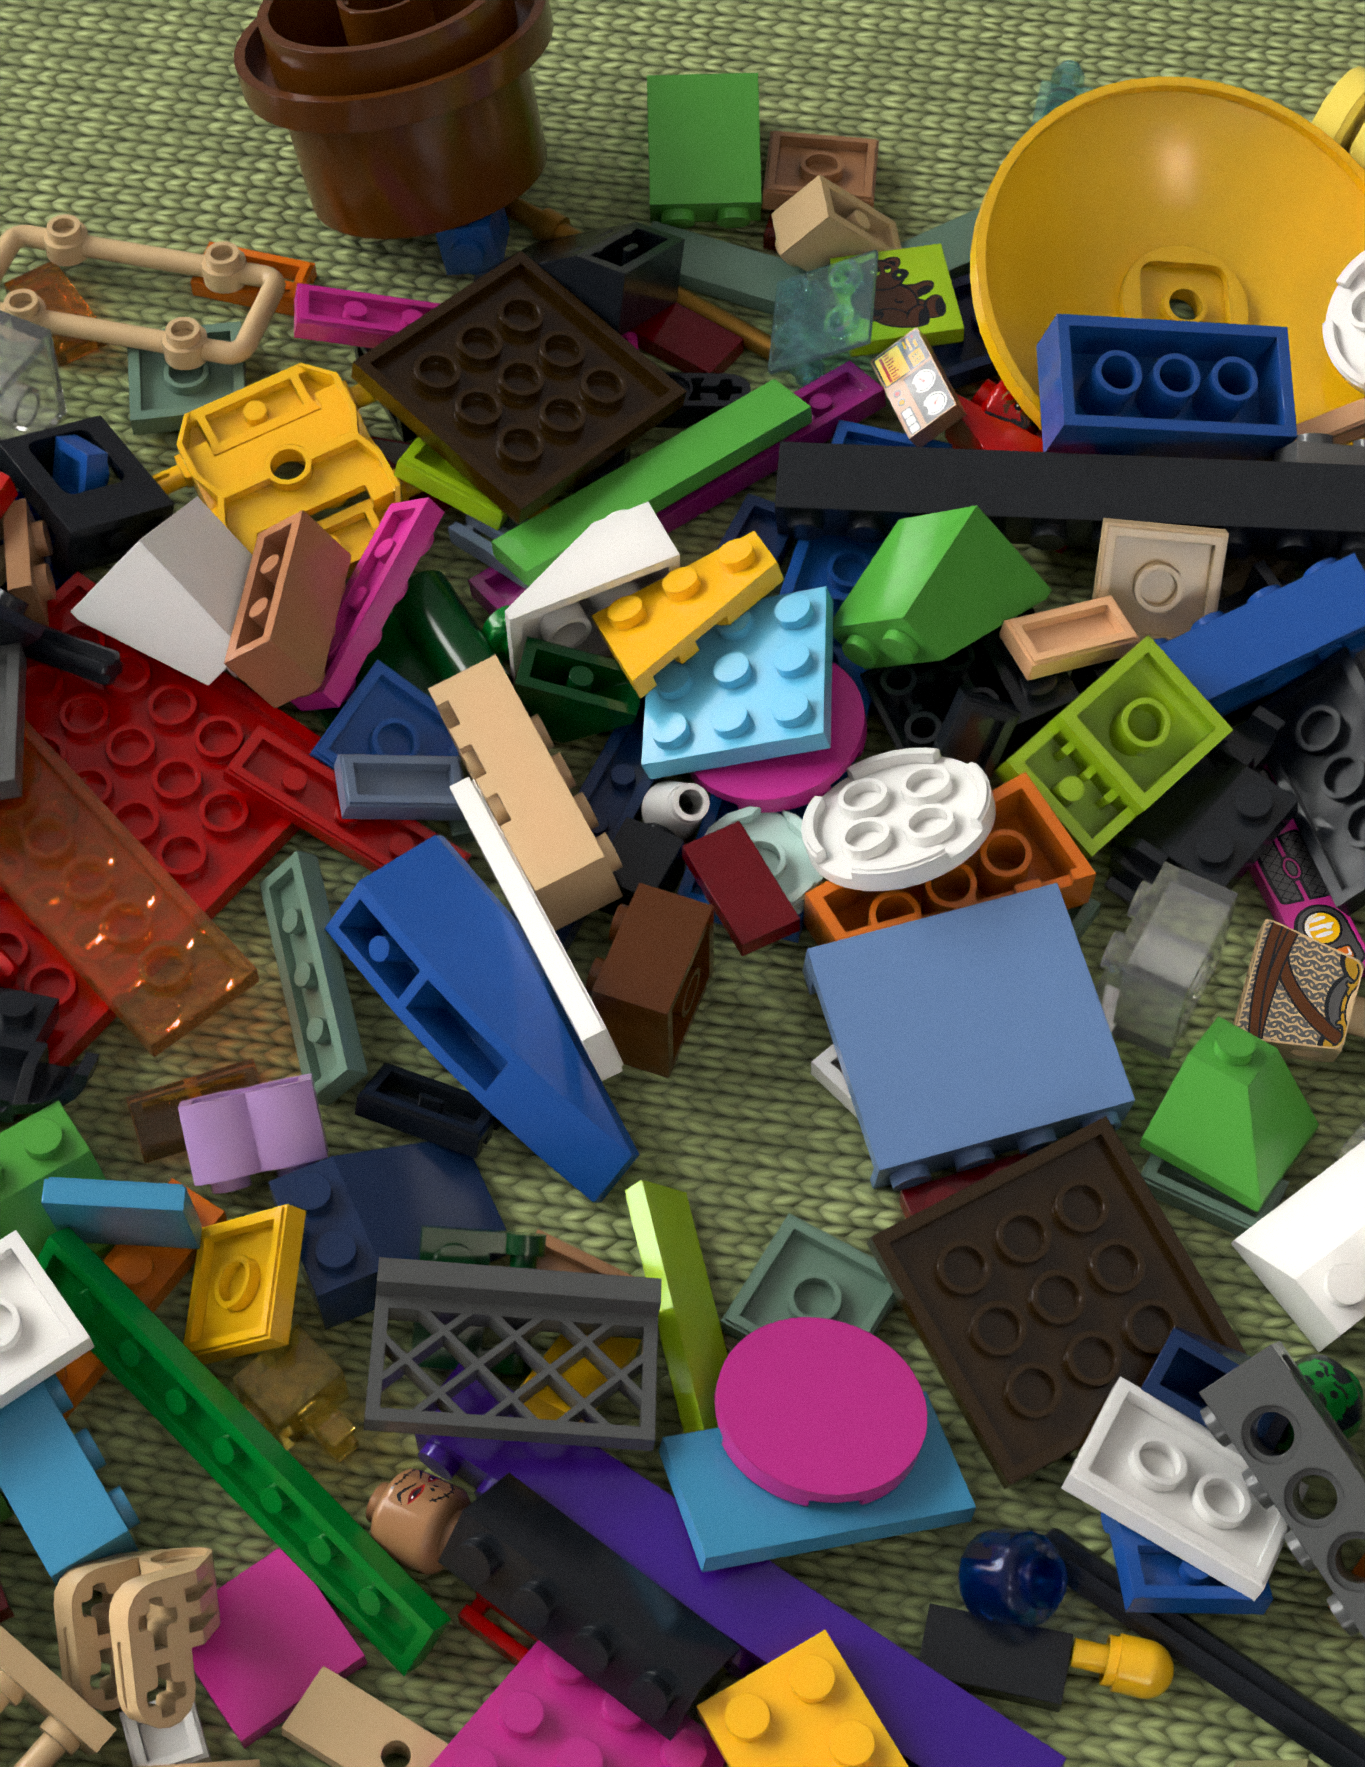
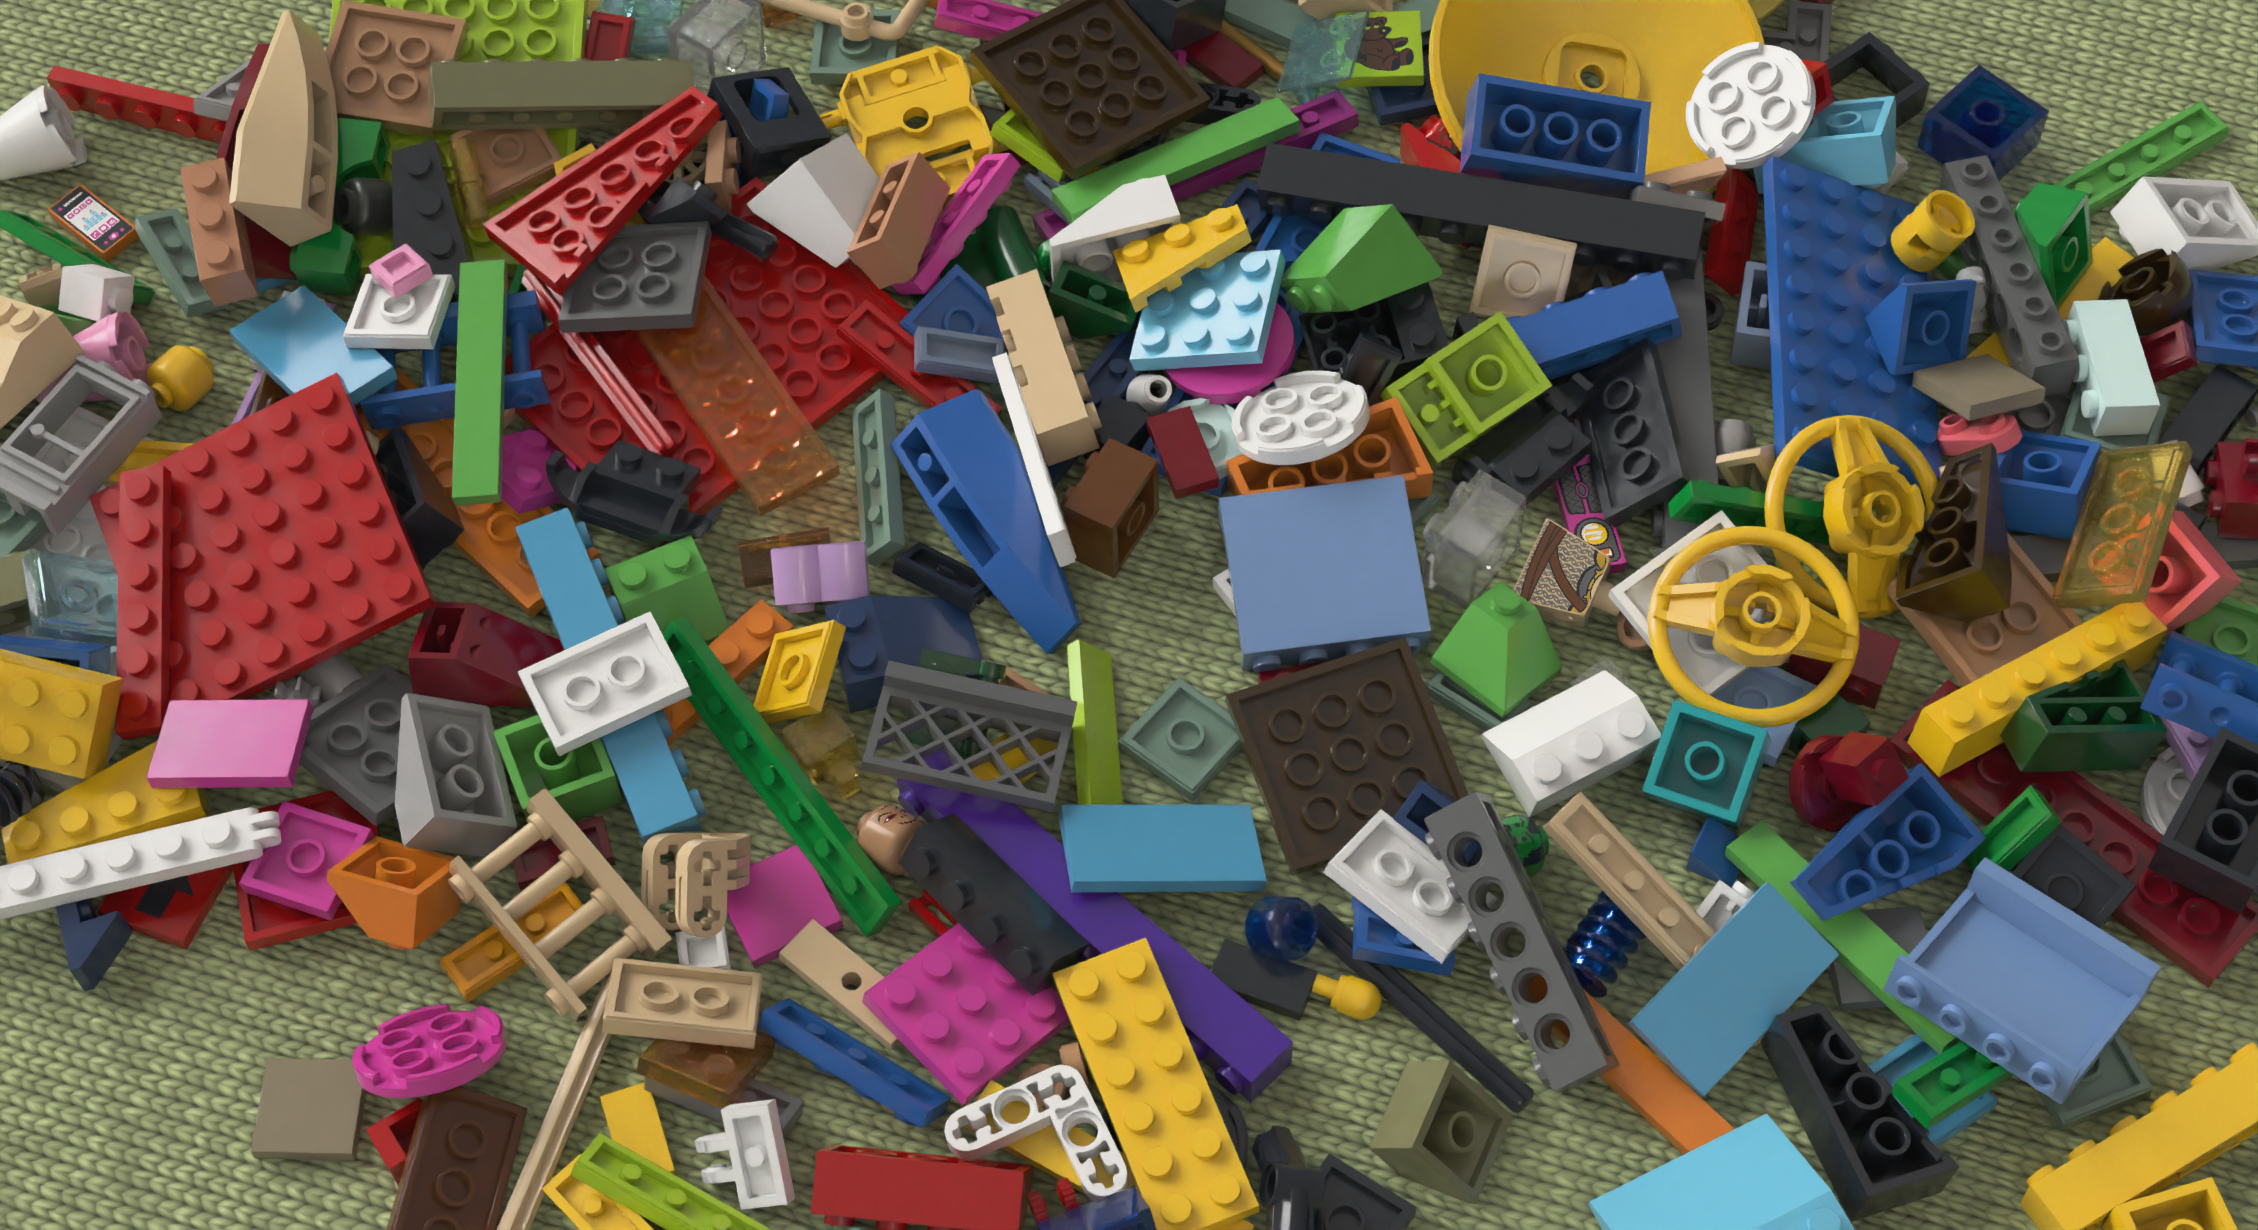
camera: 10 degrees right, 0 degrees up
(123, 1212) = (724, 611): dark azure tile -> none
(820, 1412) = (1171, 803): dark pink tile -> none
(917, 388) = (1381, 115): tile -> none
(1068, 637) = (1447, 306): light nougat tile -> none

